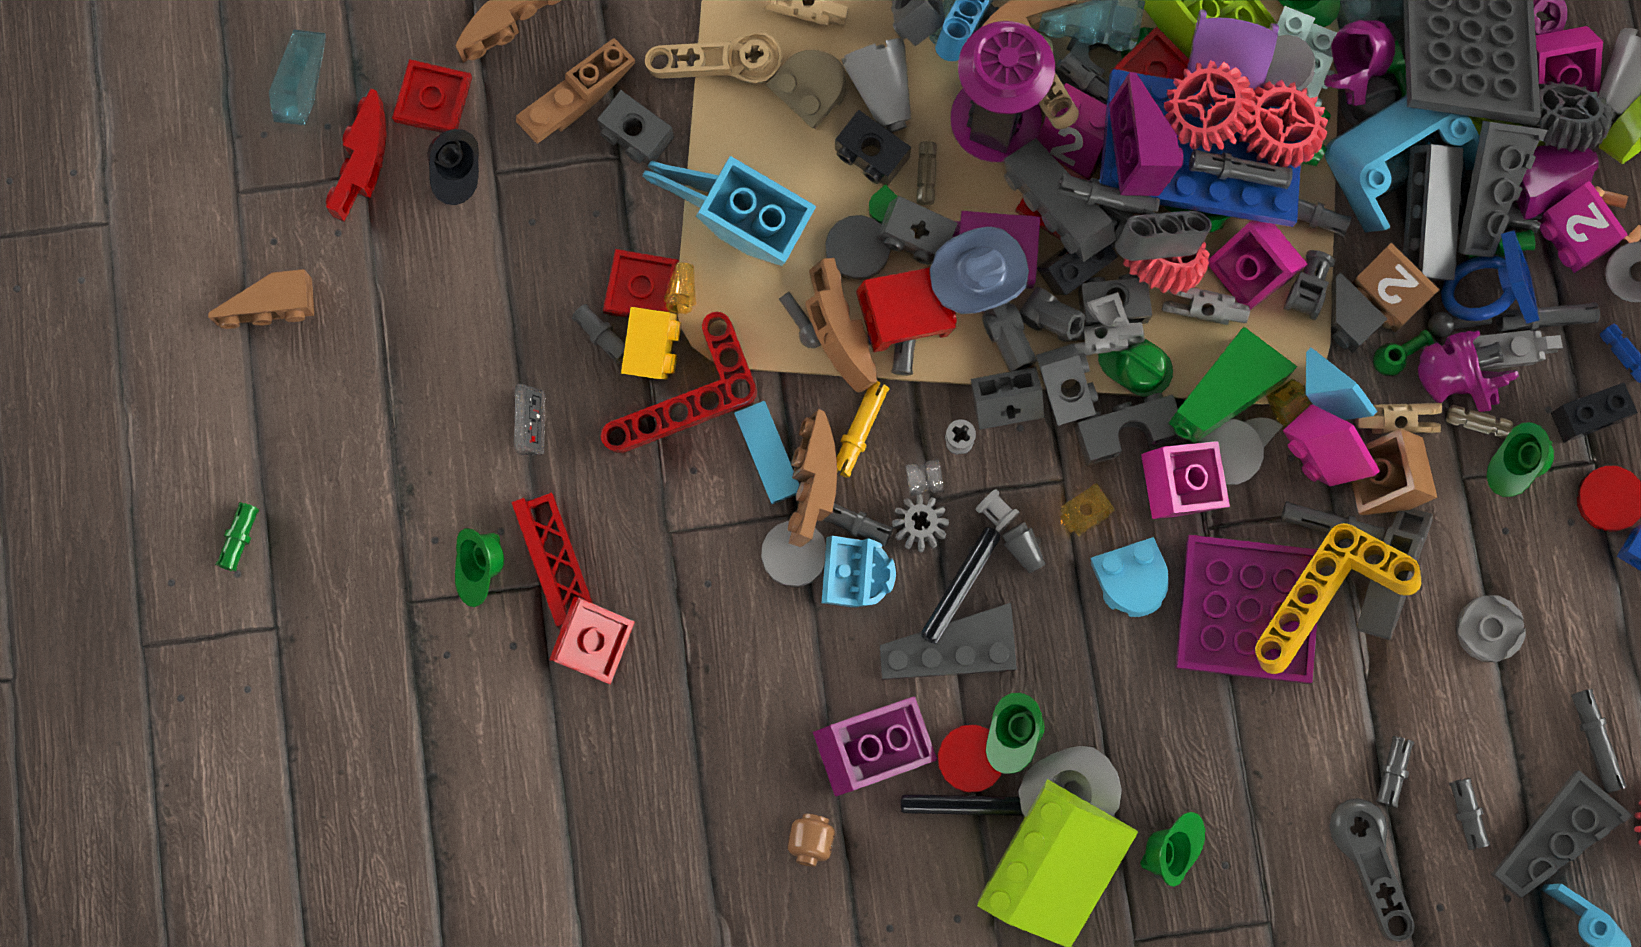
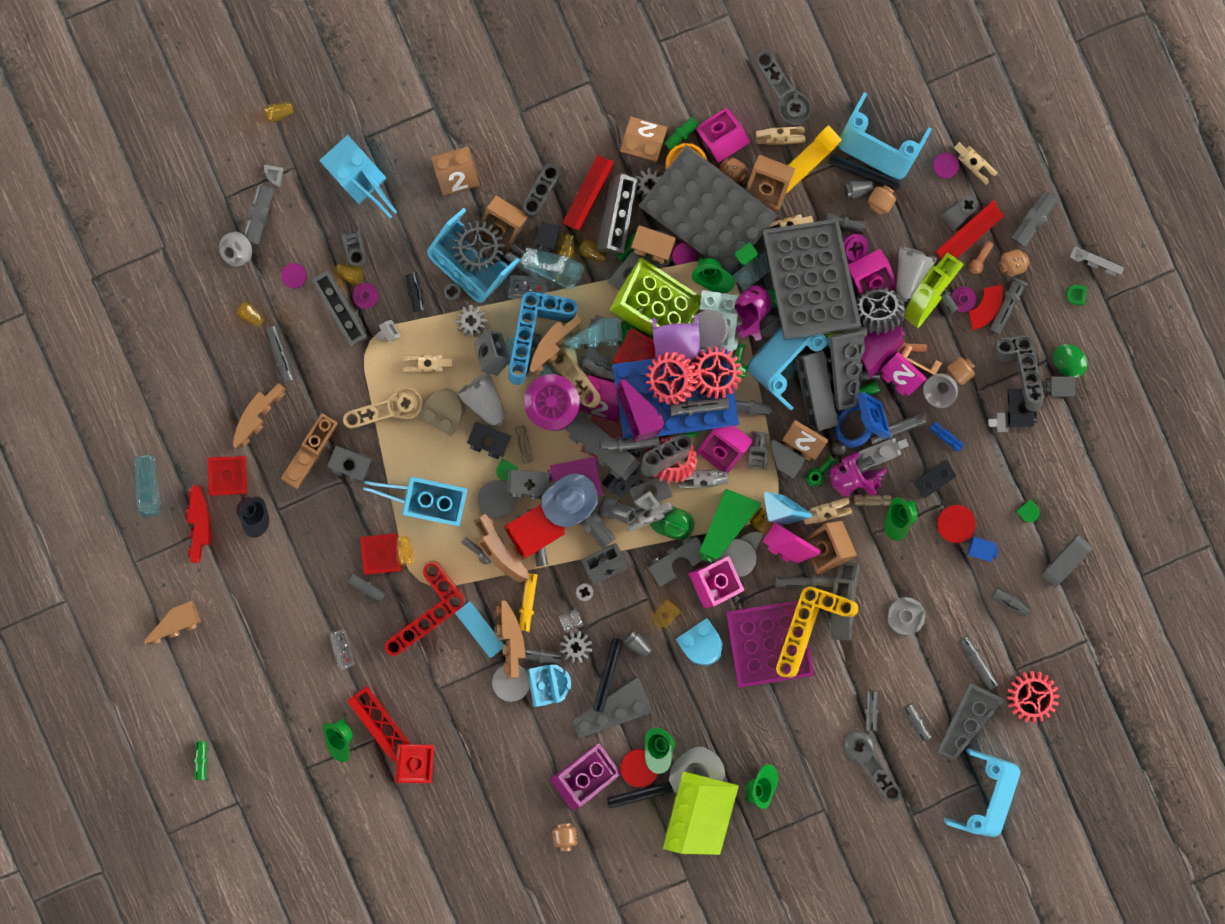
camera: 15 degrees left, 10 degrees up
(650, 343) = (396, 590): yellow brick -> none
(997, 510) = (616, 627): light grey bush -> none
(1071, 402) = (635, 547): dark grey brick -> none

